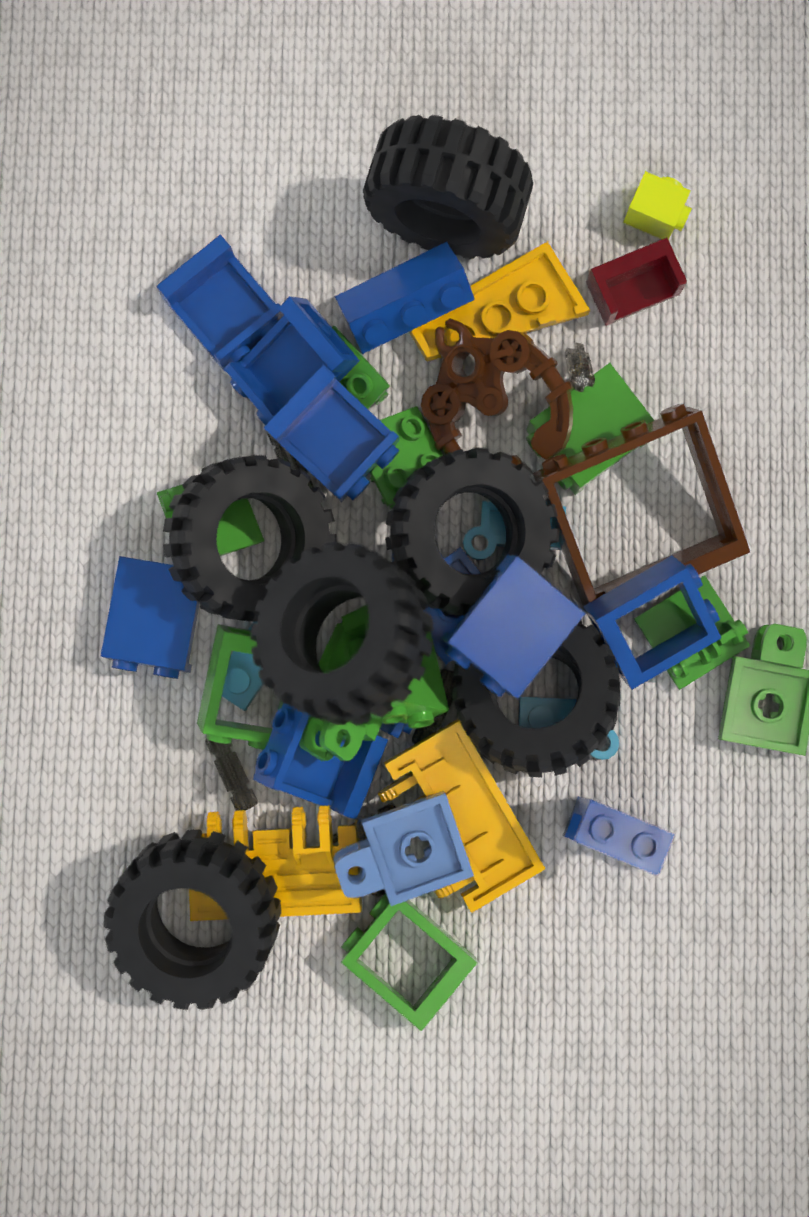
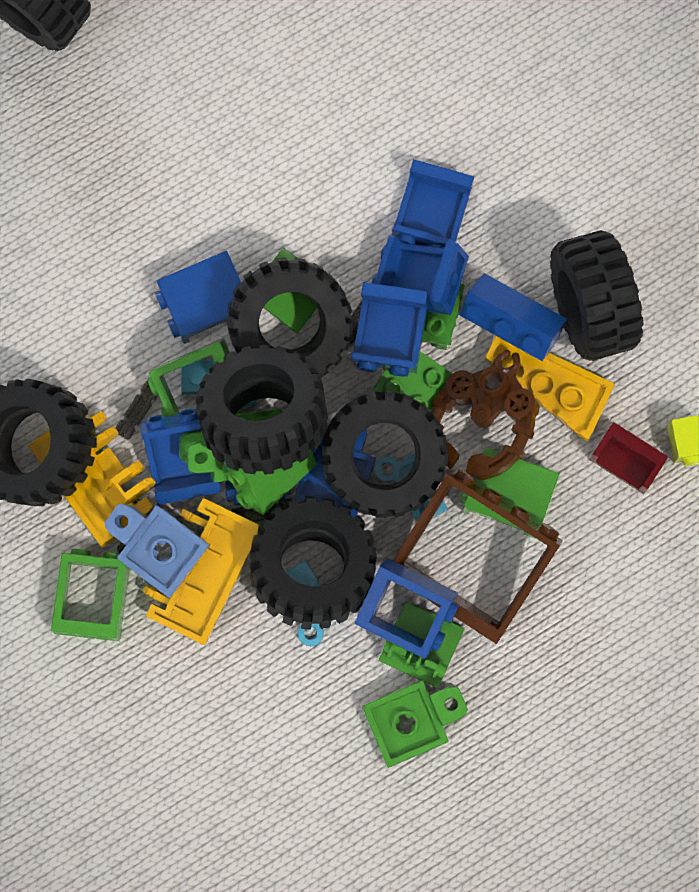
camera: 55 degrees right, 5 degrees down
(512, 628) = (335, 512): blue panel -> none
(579, 367) = (543, 456): clear smoke axle -> none
(618, 835) = (253, 672): panel -> none

